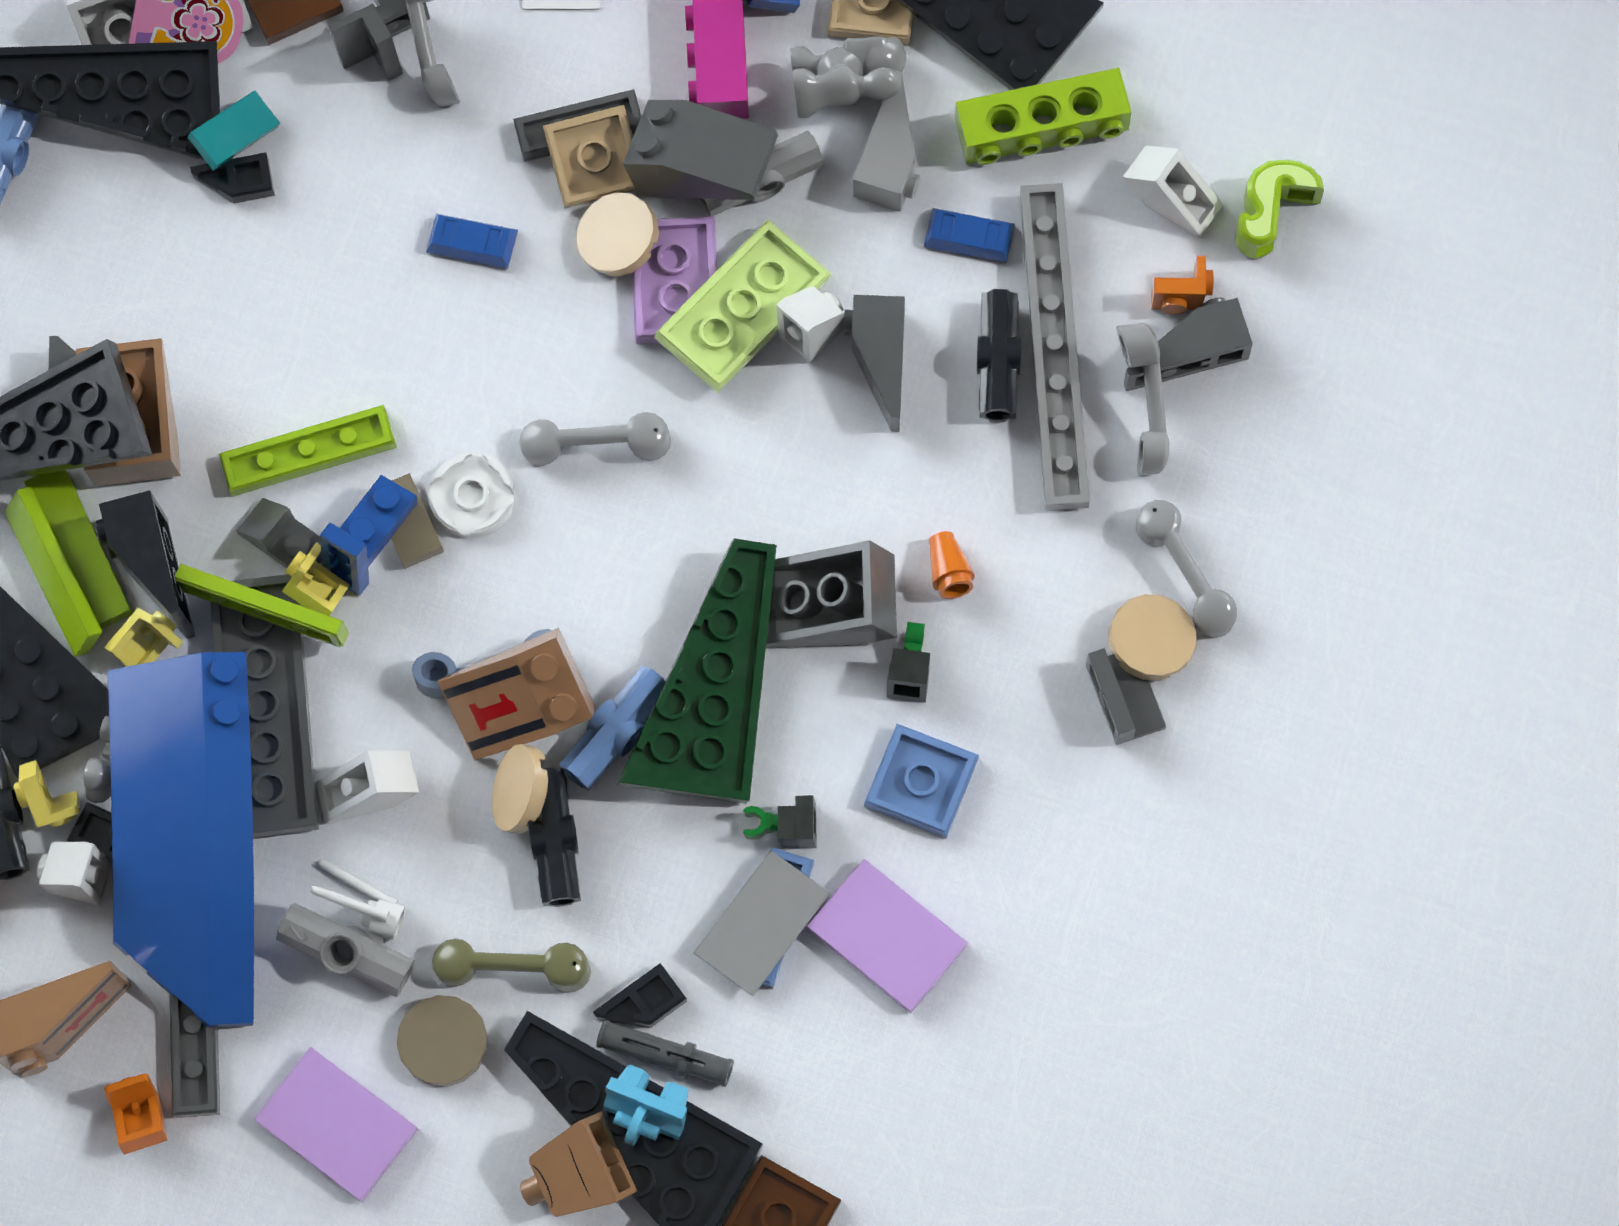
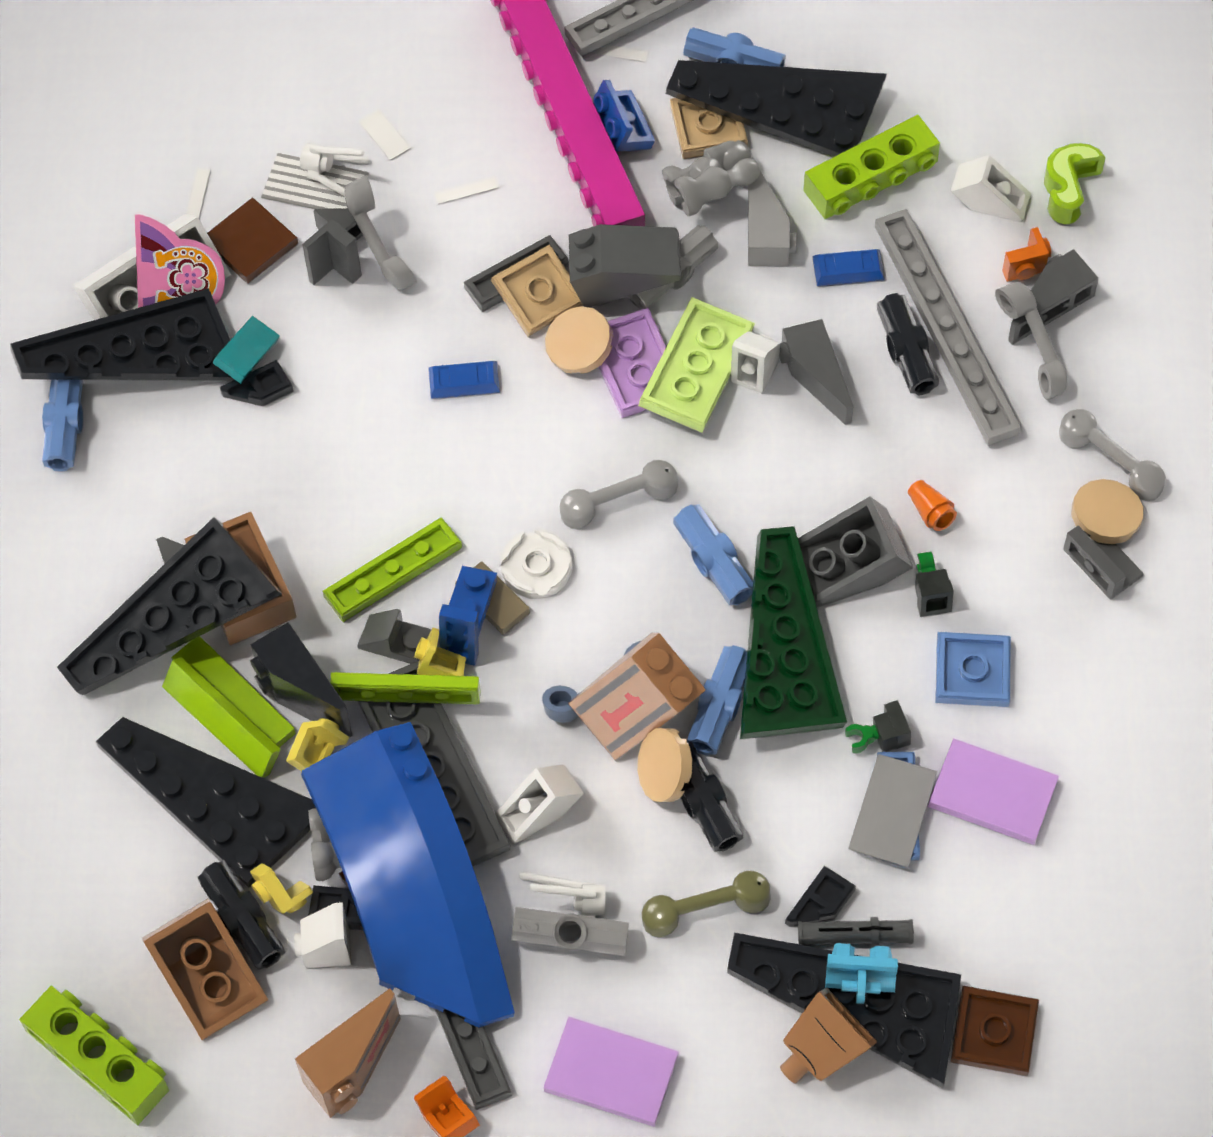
camera: 20 degrees left, 10 degrees down
(442, 1040) = (672, 979): dark tan tile -> none
(674, 548) = (714, 554): none -> medium blue piece

